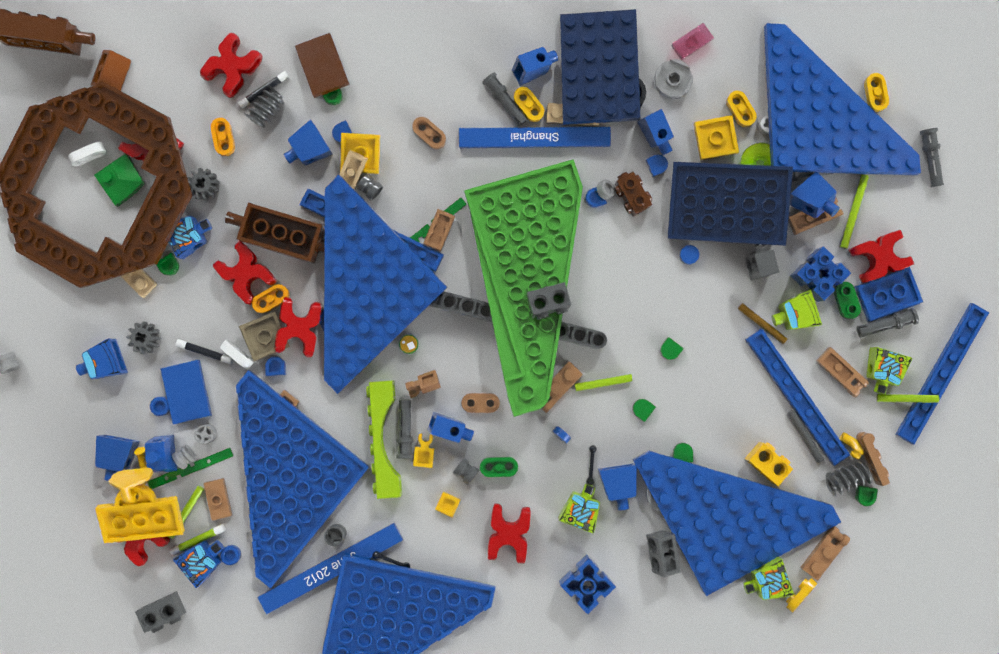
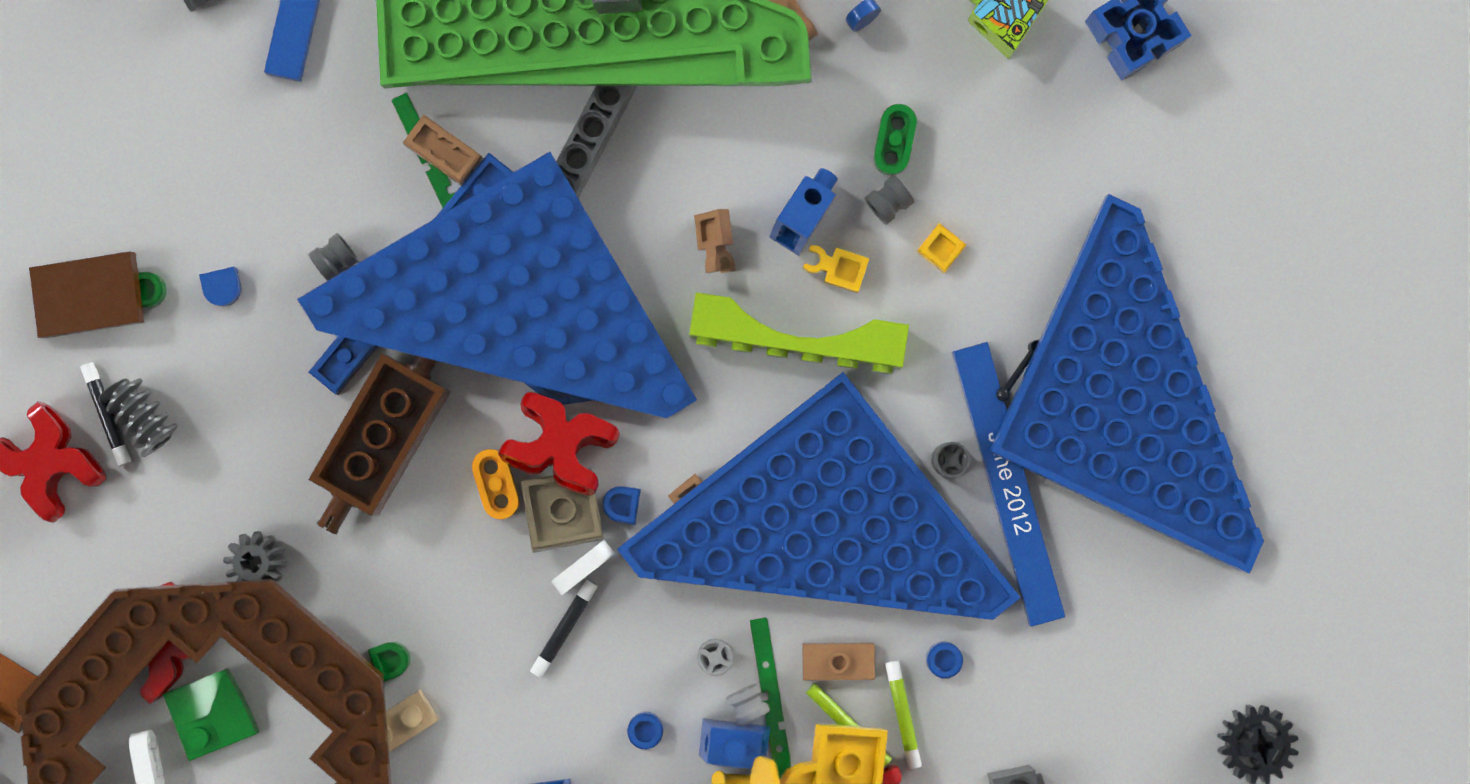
camera: 85 degrees left, 0 degrees up
(150, 340) = (501, 724): dark grey gear -> none
(186, 391) = (630, 677): blue tile -> none
(189, 236) = (345, 607): torso -> none
(200, 561) = (943, 715): torso -> none
(223, 137) = (177, 507): light orange plate -> none
(244, 272) = (436, 520): red piece -> none
(307, 145) = (229, 353): blue torso -> none
(353, 168) = (289, 275): tan plate -> none
(365, 145) = (266, 259): yellow plate -> none
(404, 439) = (806, 297): dark grey pin -> none
(409, 344) = (637, 252): pearl gold tile -> none
(429, 133) = (259, 125): medium nougat plate -> none
(480, 402) = (772, 146): medium nougat plate -> none
(509, 533) = (1017, 148): red piece -> none

